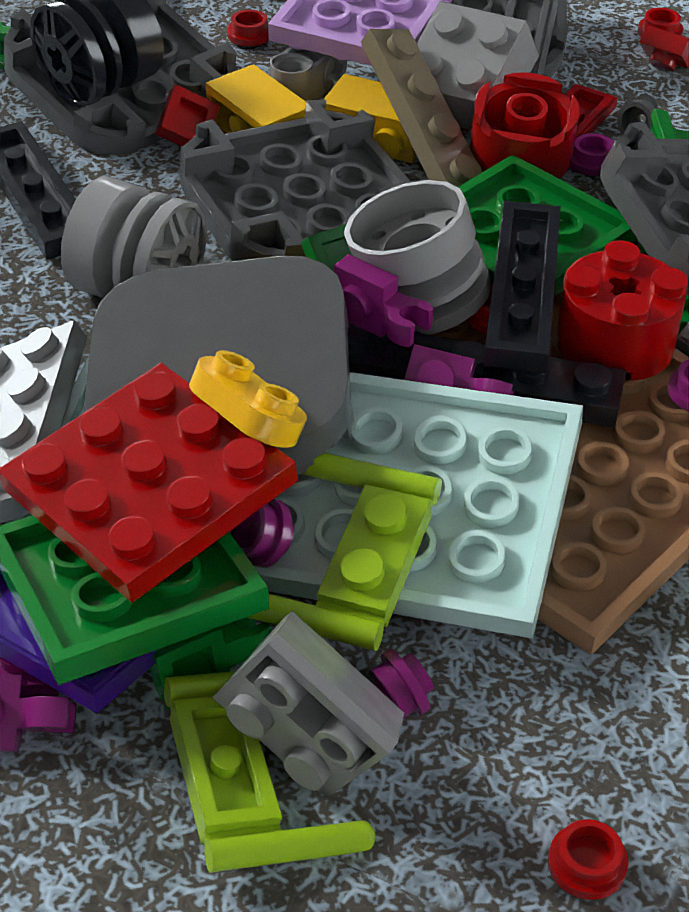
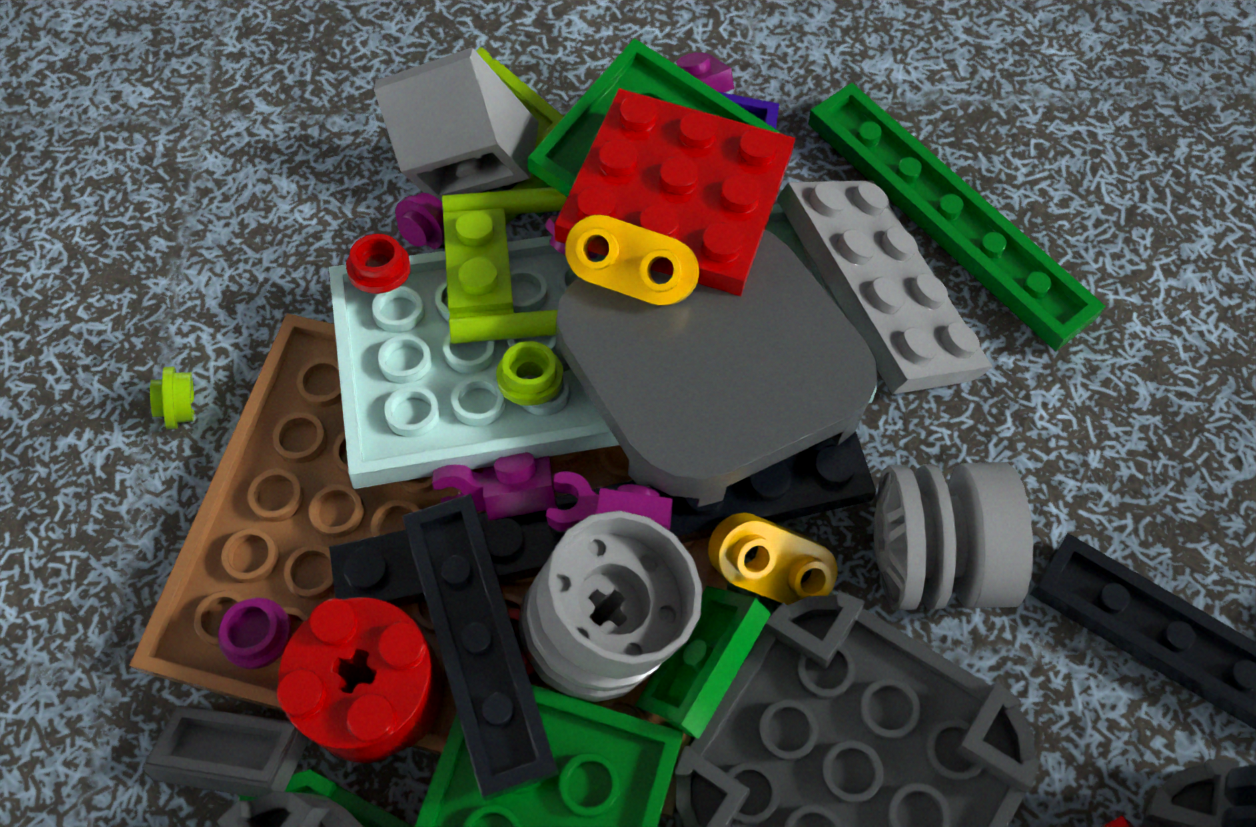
camera: 155 degrees right, 20 degrees up
(385, 416) = (524, 360): none -> lime plate
(475, 562) = (377, 264): none -> red plate
(588, 860) = (248, 167): red plate -> none

